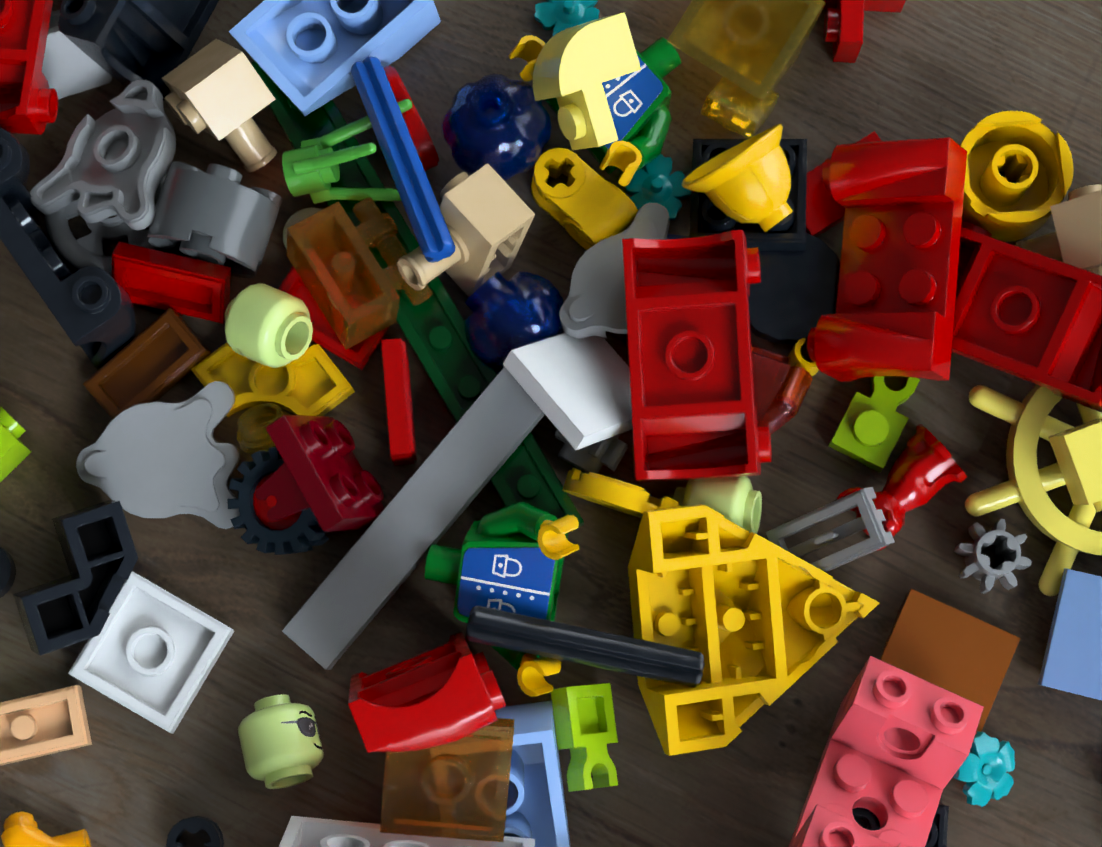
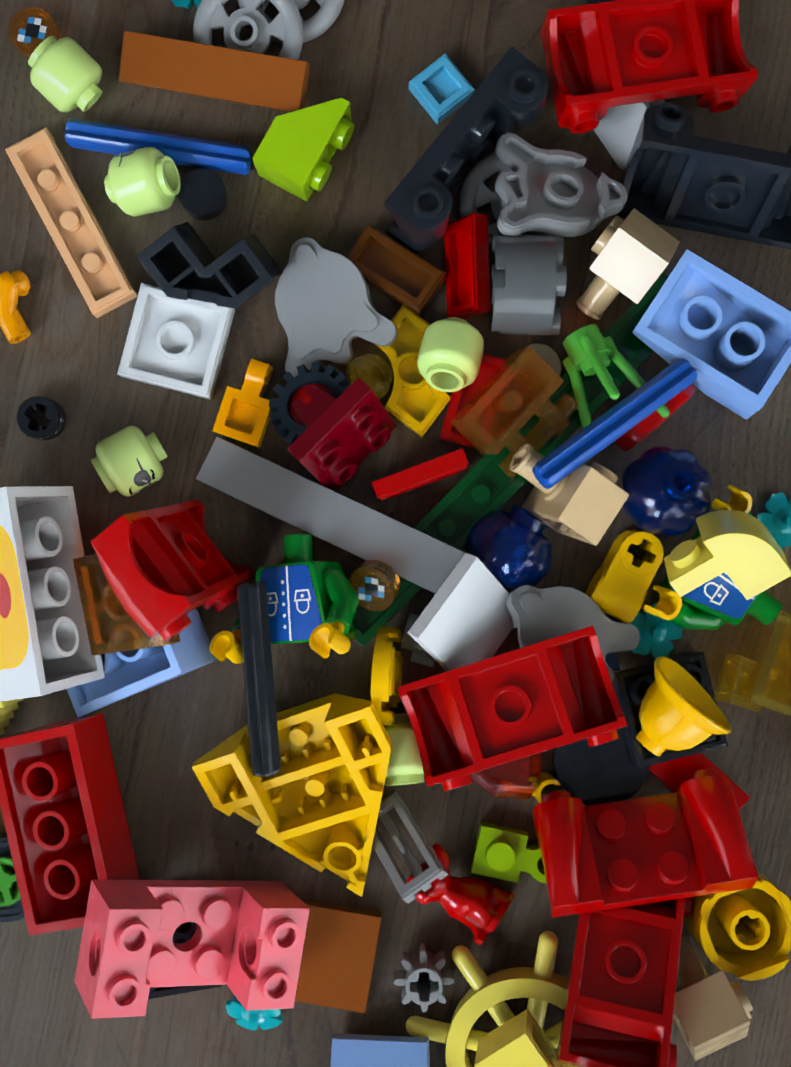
camera: 75 degrees right, 10 degrees up
(261, 588) = (244, 411): none -> light orange plate
(512, 480) = (375, 585): none -> clear orange tile
(585, 726) = (200, 690): lime plate -> none

